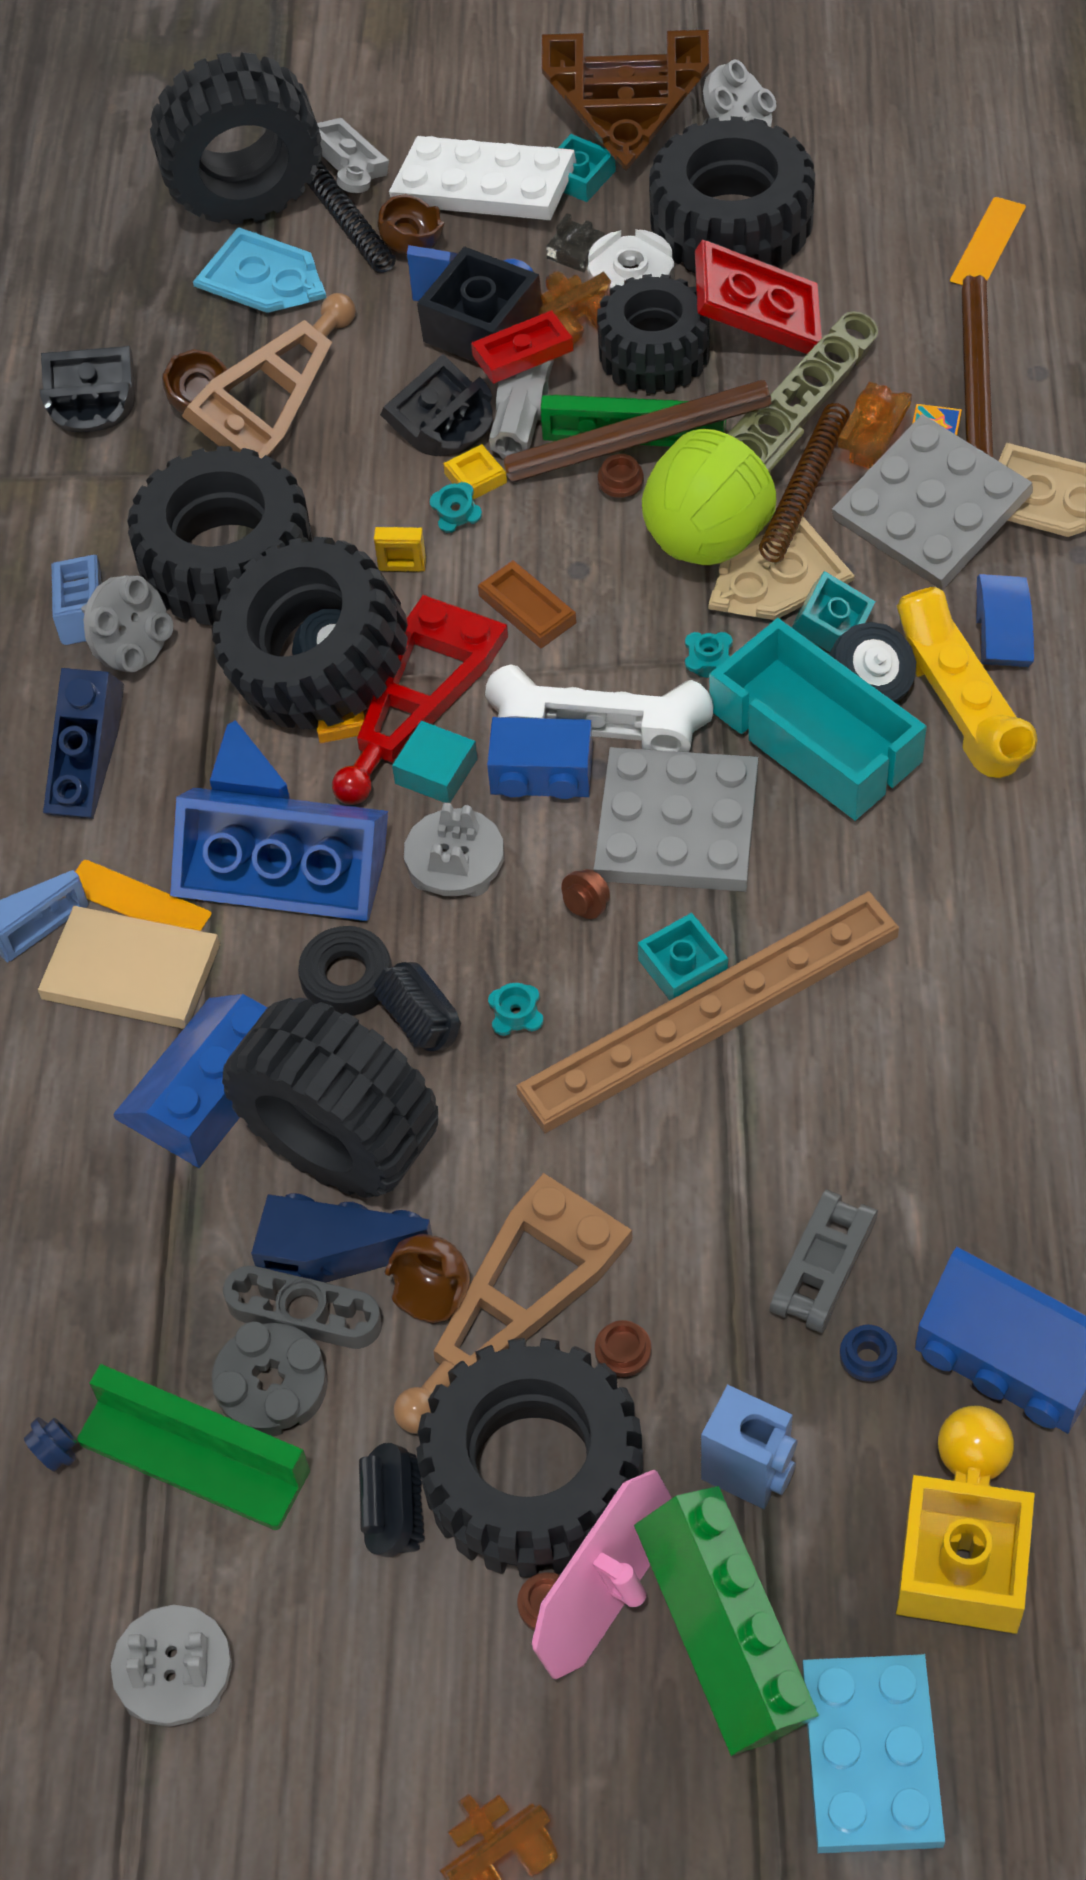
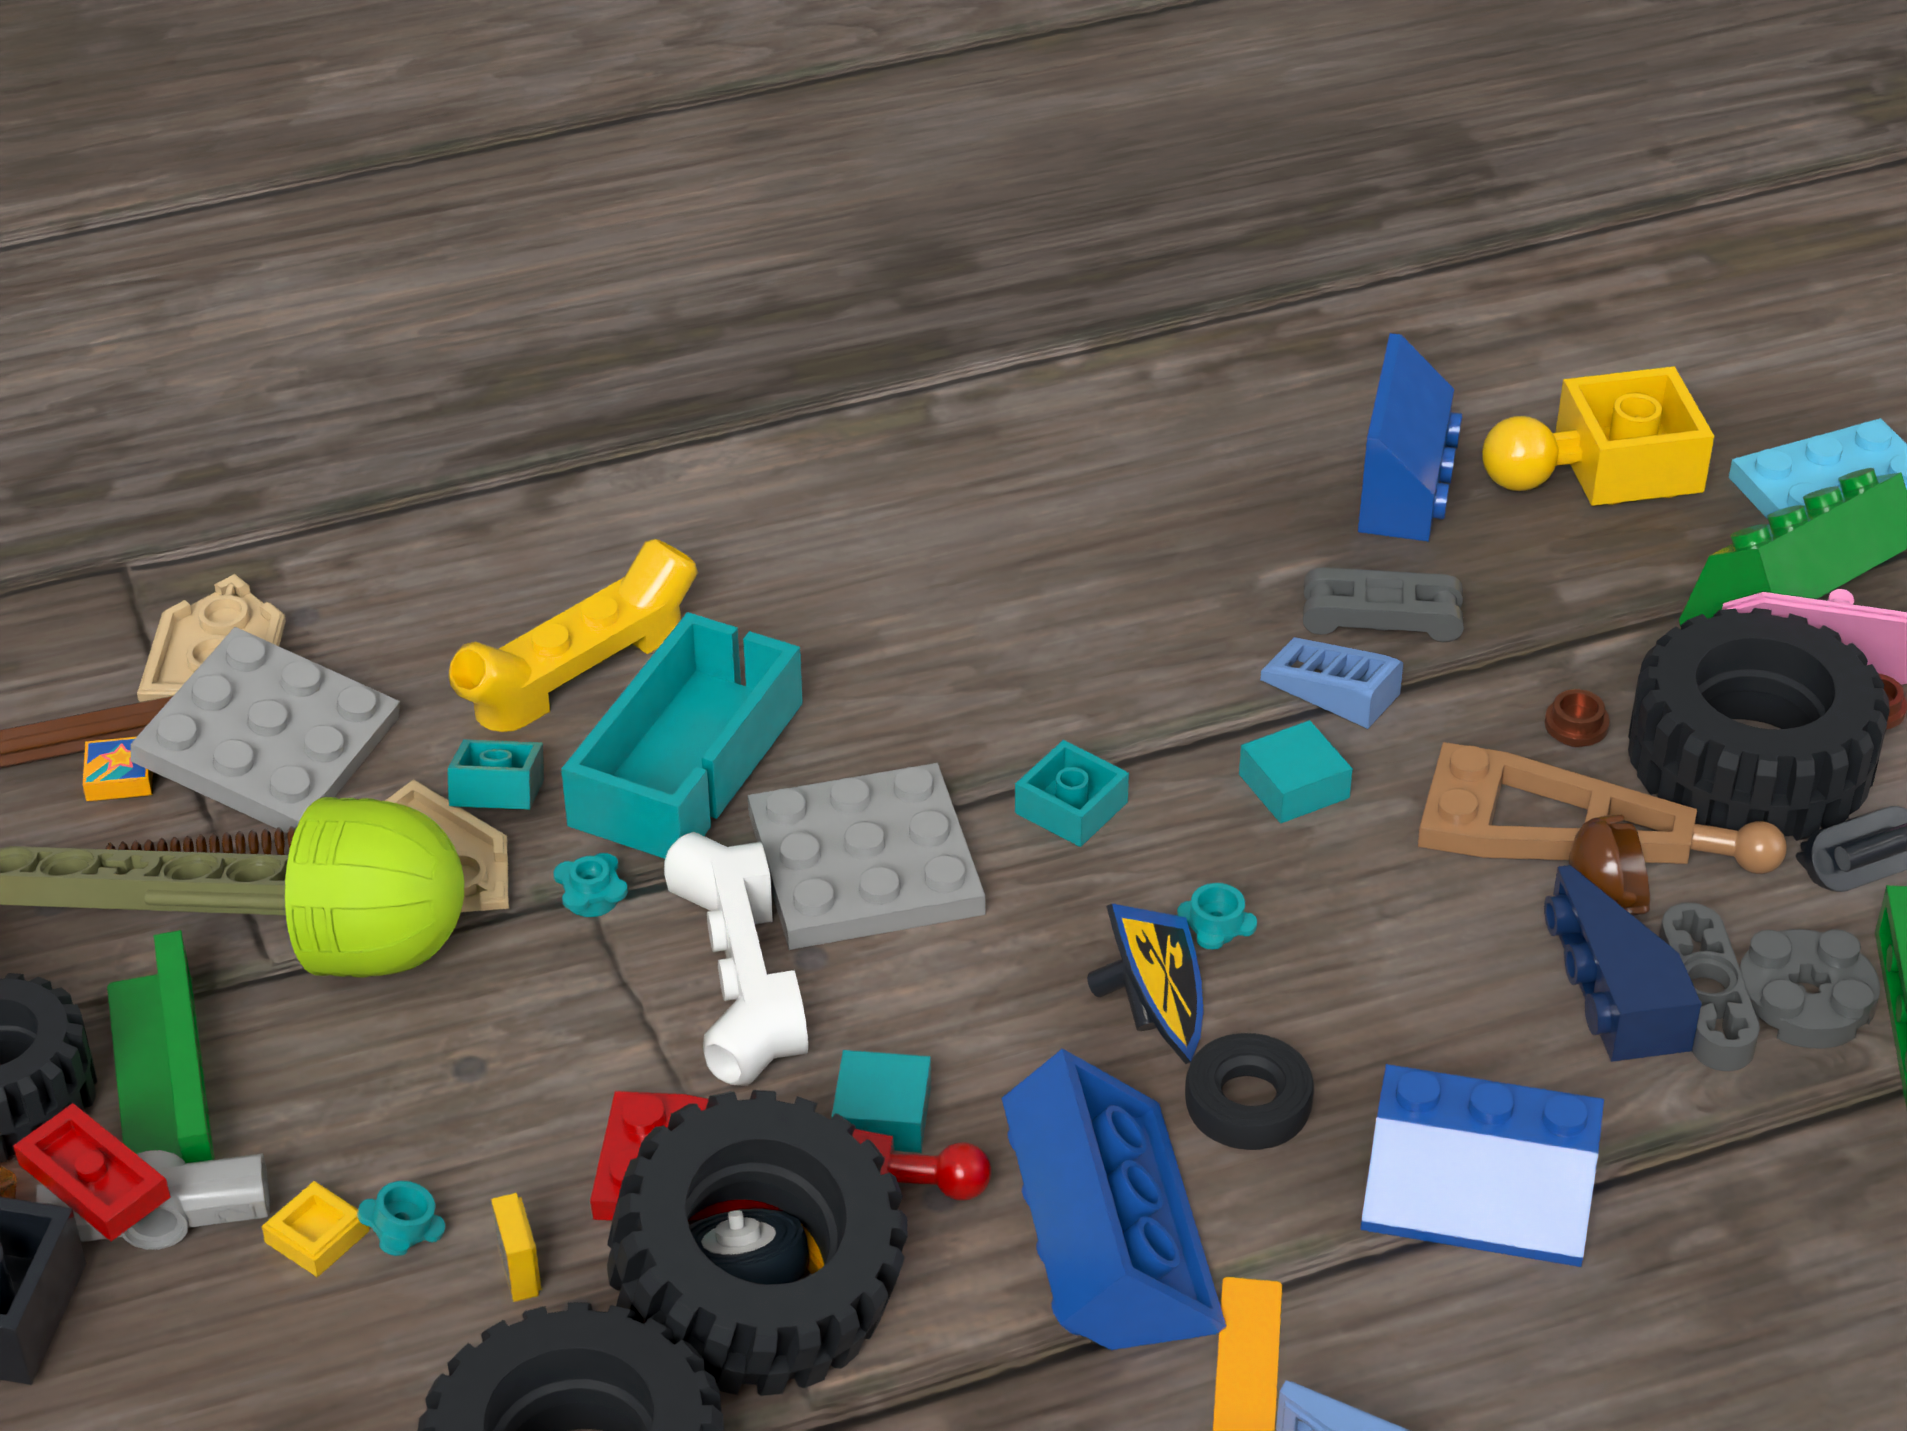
camera: 115 degrees left, 15 degrees down
(129, 967) = (1366, 1319): tan tile -> none
(244, 768) = (999, 1290): blue slope -> none
(331, 1097) = (1497, 941): black tyre -> none
(418, 1006) = (1271, 987): black piece -> none
(441, 410) = (200, 1291): black slope -> none
(453, 871) = (1000, 1058): light grey plate -> none
(455, 935) = (1158, 975): none -> shield
(527, 604) = (558, 1096): dark orange tile -> none
(540, 757) = (841, 984): blue brick -> none
(585, 893) = (1027, 891): copper plate -> none
(620, 476) = (289, 1051): copper plate -> none
(638, 430) = (229, 1021): reddish brown axle -> none
(645, 1115) = (1295, 771): none -> teal piece
(706, 1012) = (1157, 777): medium nougat tile -> none
(727, 1219) = (1351, 682): none -> medium blue slope
(748, 1447) = (1645, 568): medium blue brick -> none
(870, 1338) = (1463, 553): dark blue plate -> none
(873, 423) = (139, 798): clear orange hips -> none
(878, 657) = (559, 716): black wheel -> none
(1005, 620) = (434, 634): blue slope -> none

